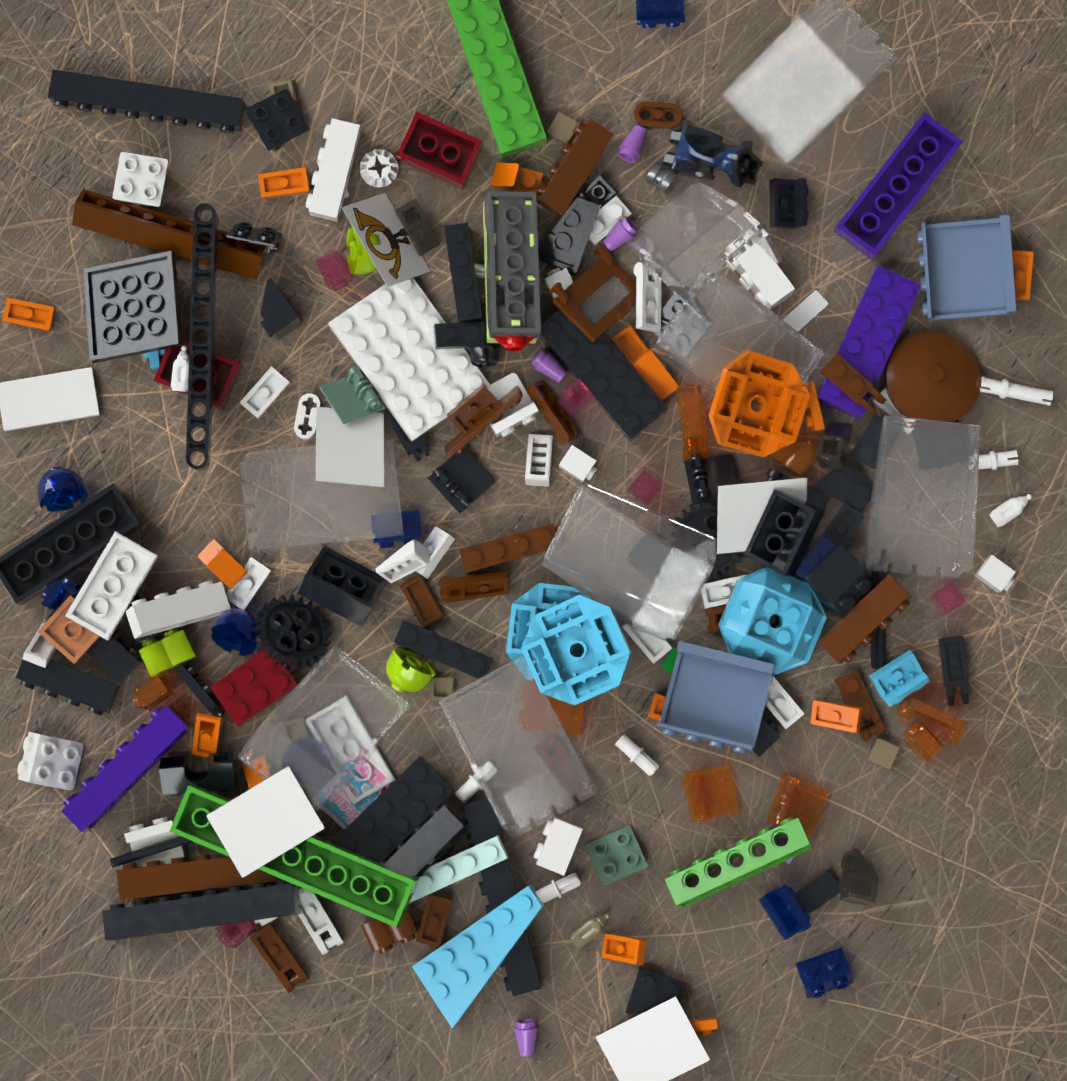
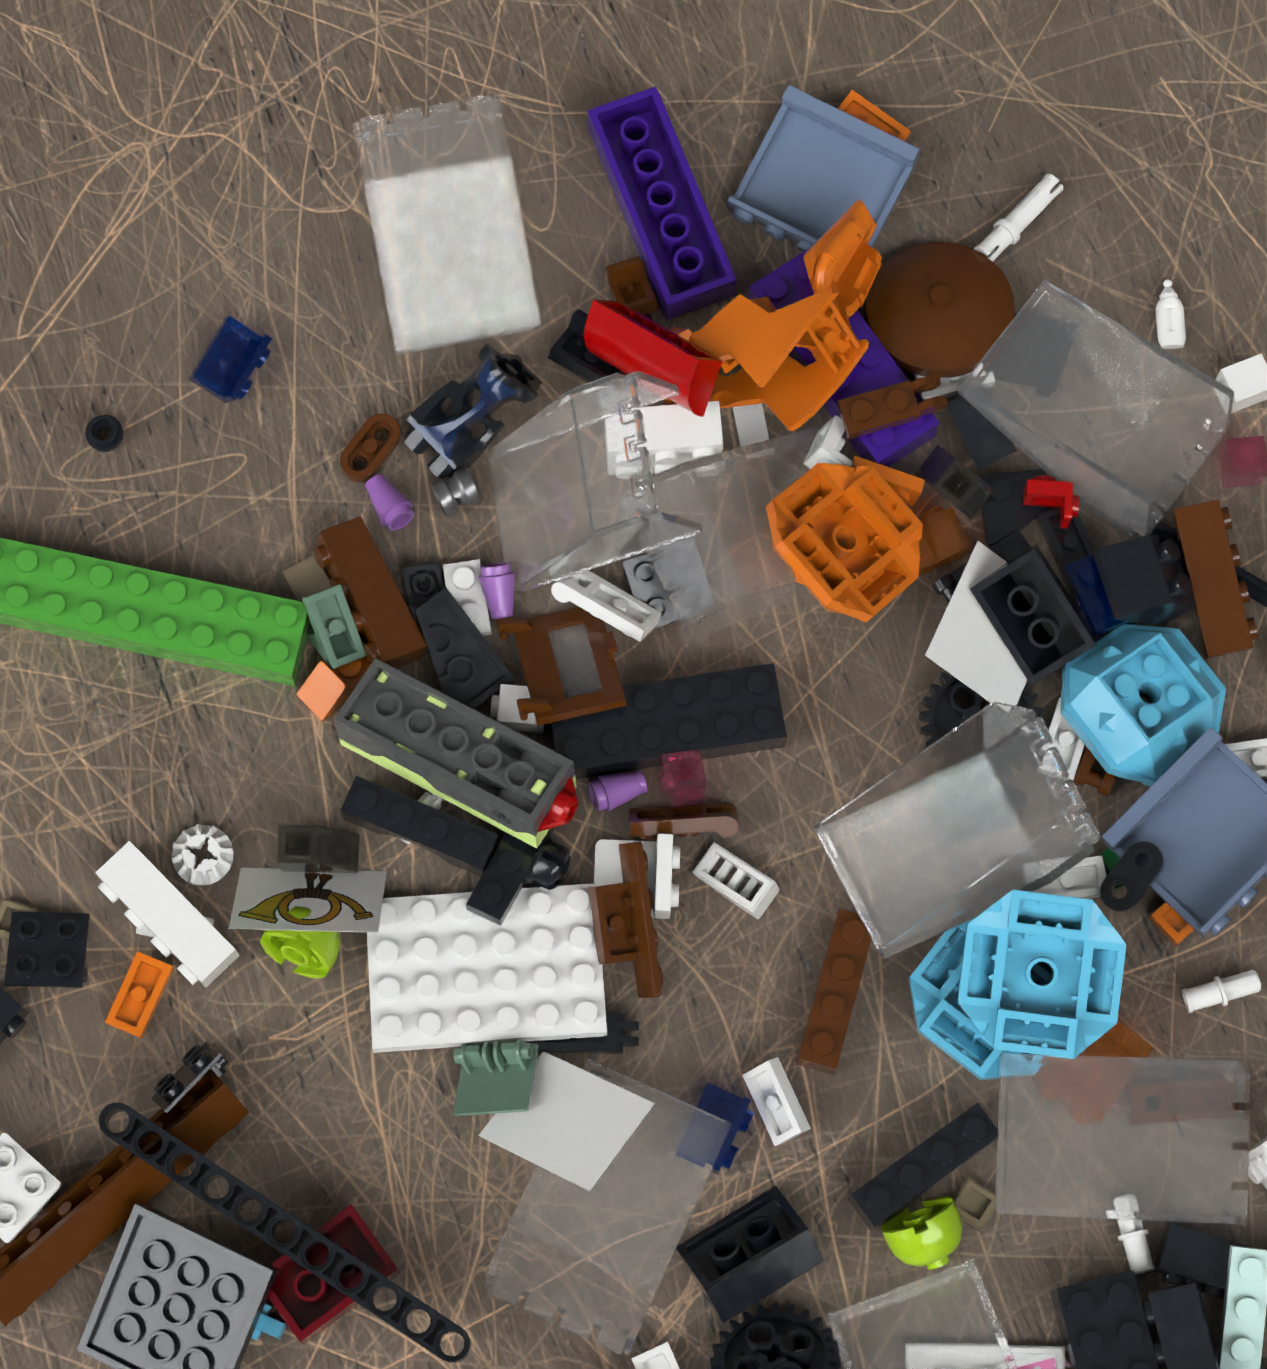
camera: 60 degrees left, 10 degrees down
(180, 371) = (314, 1293): white piece -> none
(265, 392) = (412, 1198): white plate -> none
(277, 313) = (315, 1108): black slope -> none
(301, 415) = (475, 1166): white beam -> none
(333, 271) = (304, 1000): clear pink brick -> none
(410, 557) = (769, 1144): white slope -> none
(422, 601) = (835, 1157): reddish brown tile -> none
(439, 150) = (233, 756): dark red brick -> none
(461, 480) = (700, 1001): black hinge -> none
(473, 586) = (858, 1072): reddish brown plate -> none
(542, 159) = (333, 627): none -> sand green slope
(578, 464) = (775, 830): white brick -> none
(629, 344) = (665, 663): orange tile -> none
(644, 488) = (861, 761): clear pink brick -> none
(655, 374) = (714, 654): orange tile -> none
(667, 670) = (1134, 878): none -> black plate
(691, 421) = (811, 646): clear orange slope -> none
(707, 474) = (898, 669): black hinge -> none
(798, 235) = (639, 344): none -> red brick
(809, 363) = (827, 445): none -> white bracket
(838, 200) = (631, 286): none -> reddish brown bracket
(838, 285) = (762, 337): none -> orange piece
(858, 498) = (1051, 493): none -> red bracket
(996, 460) = (1098, 286): white pin -> none

